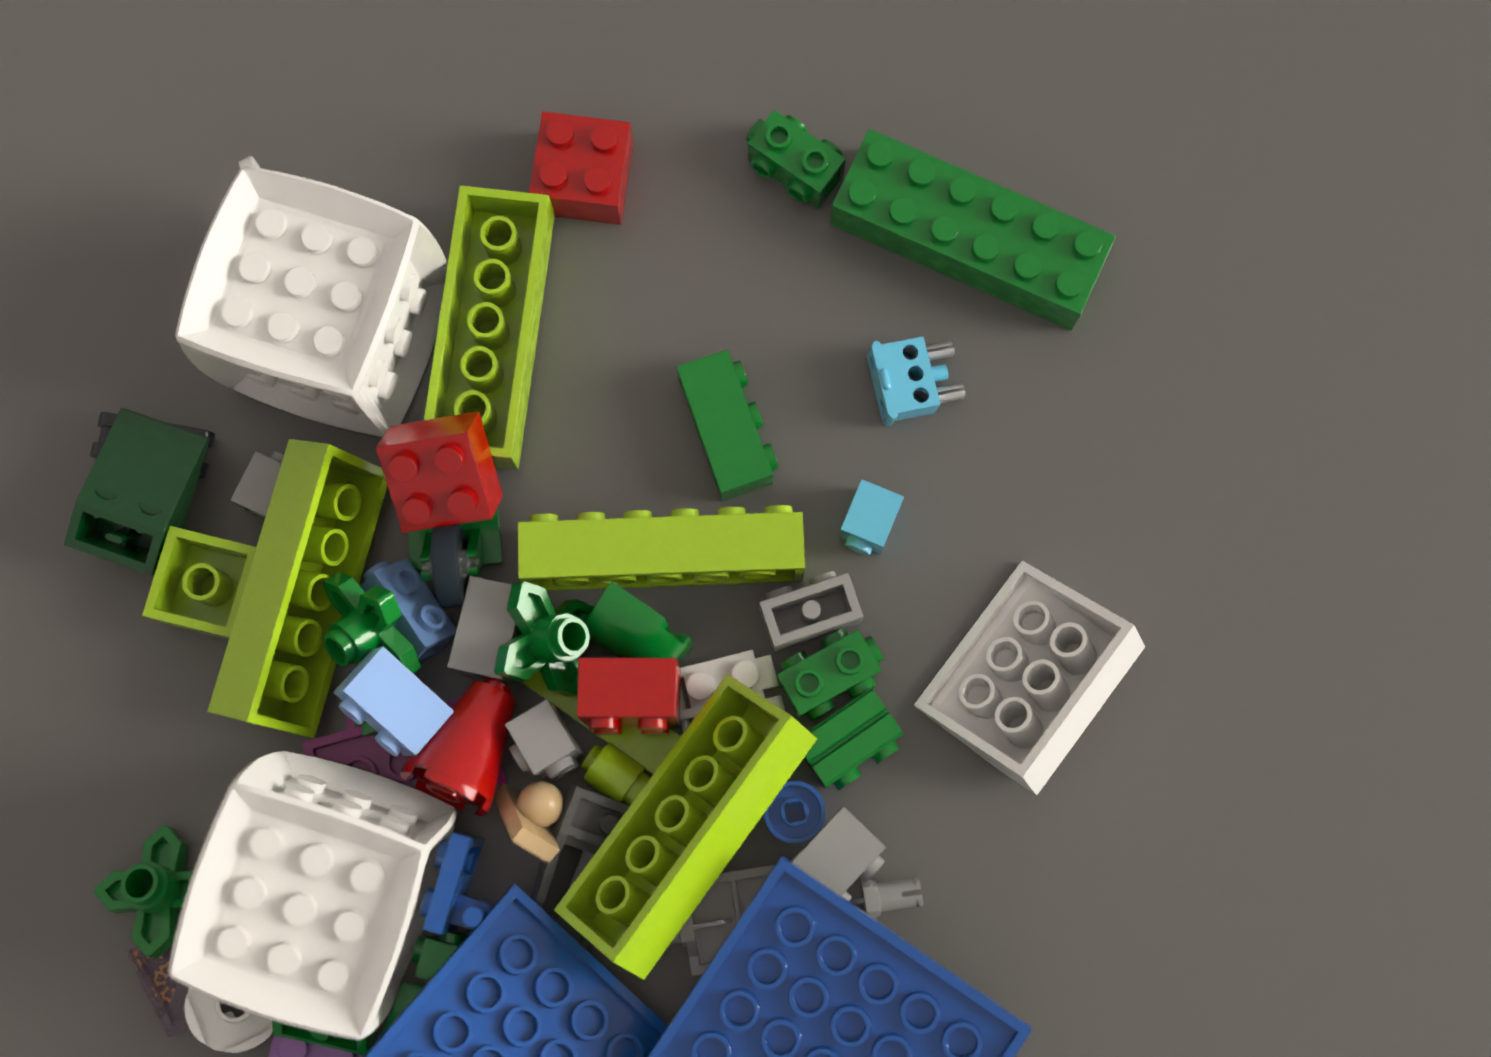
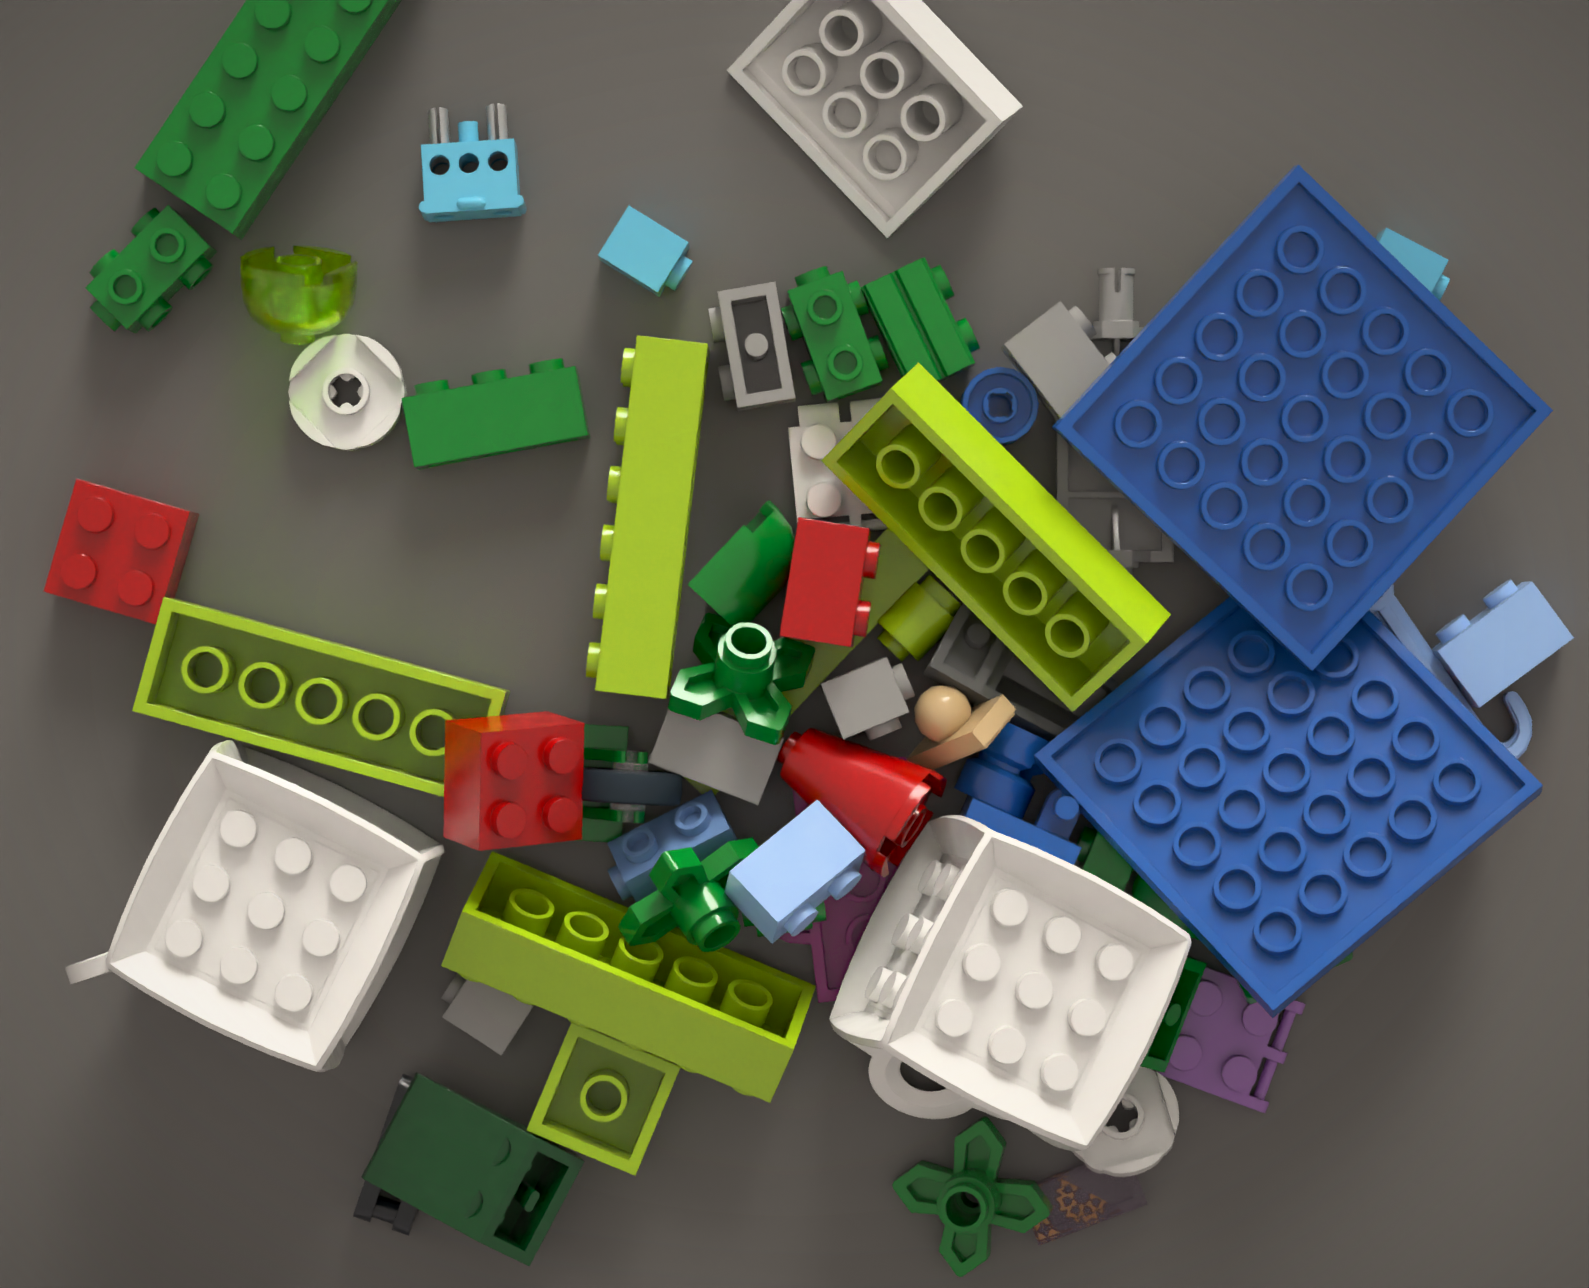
camera: 80 degrees left, 10 degrees up
(500, 862) = (1004, 771): none -> blue wheel
(724, 289) = (313, 391): none -> white plate
(796, 263) = (298, 291): none -> clear neon green cylinder

